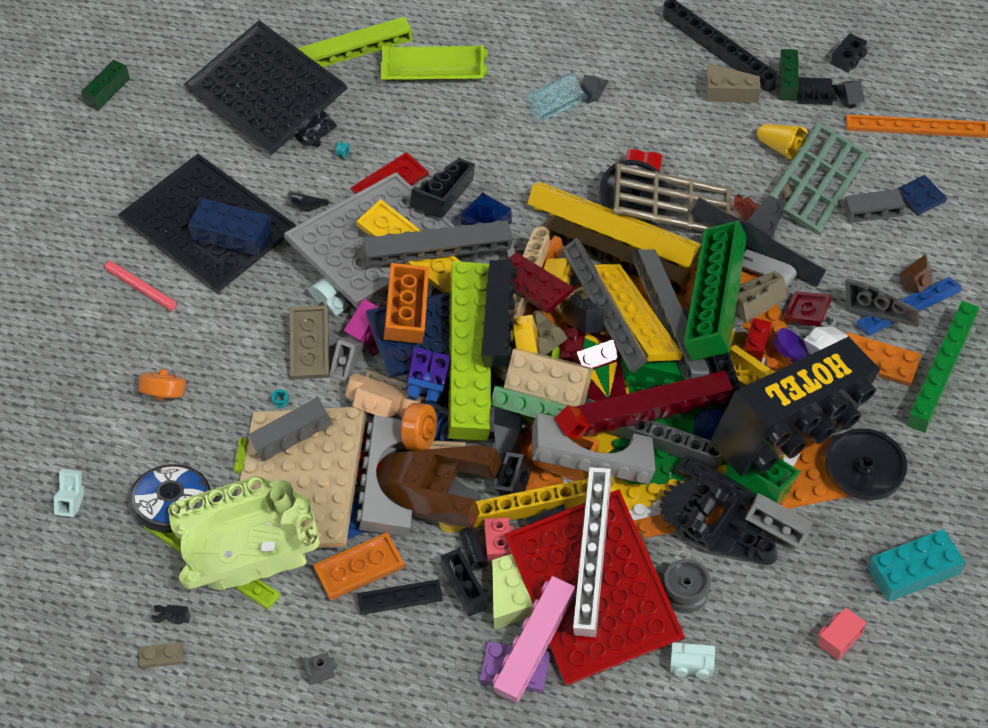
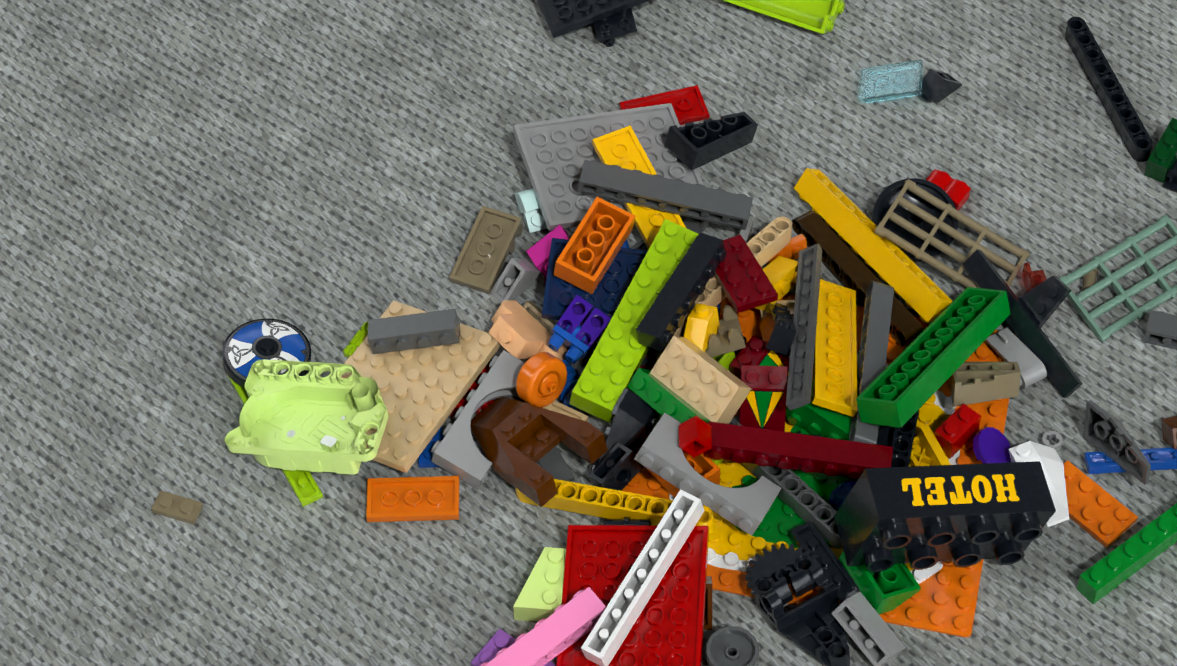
camera: 25 degrees right, 0 degrees up
(70, 494) = (174, 313): light aqua brick -> none
(140, 285) = (352, 127): coral axle -> none
(162, 384) = (317, 237): orange wheel -> none
(168, 207) = (452, 85): black plate -> none
(173, 613) = (210, 472): black plate -> none
(230, 227) = (468, 99): dark blue brick -> none
(277, 403) = (428, 302): teal bush -> none
(306, 202) = (563, 101): black piece -> none
(319, 668) = (319, 584): dark grey brick -> none
(342, 149) = (631, 58): teal bush -> none
(399, 597) = (436, 546): black plate -> none
(464, 582) = (506, 558): black brick -> none
(473, 548) = (536, 528): black axle -> none
(485, 210) = (742, 179): clear blue brick -> none
(495, 539) = (558, 530): coral brick -> none
(731, 85) = (1094, 139): dark tan wedge -> none
(782, 138) = (1118, 219): yellow cone -> none
(807, 308) = (1036, 417): dark red plate -> none
(866, 464) = (1001, 610): black dish -> none

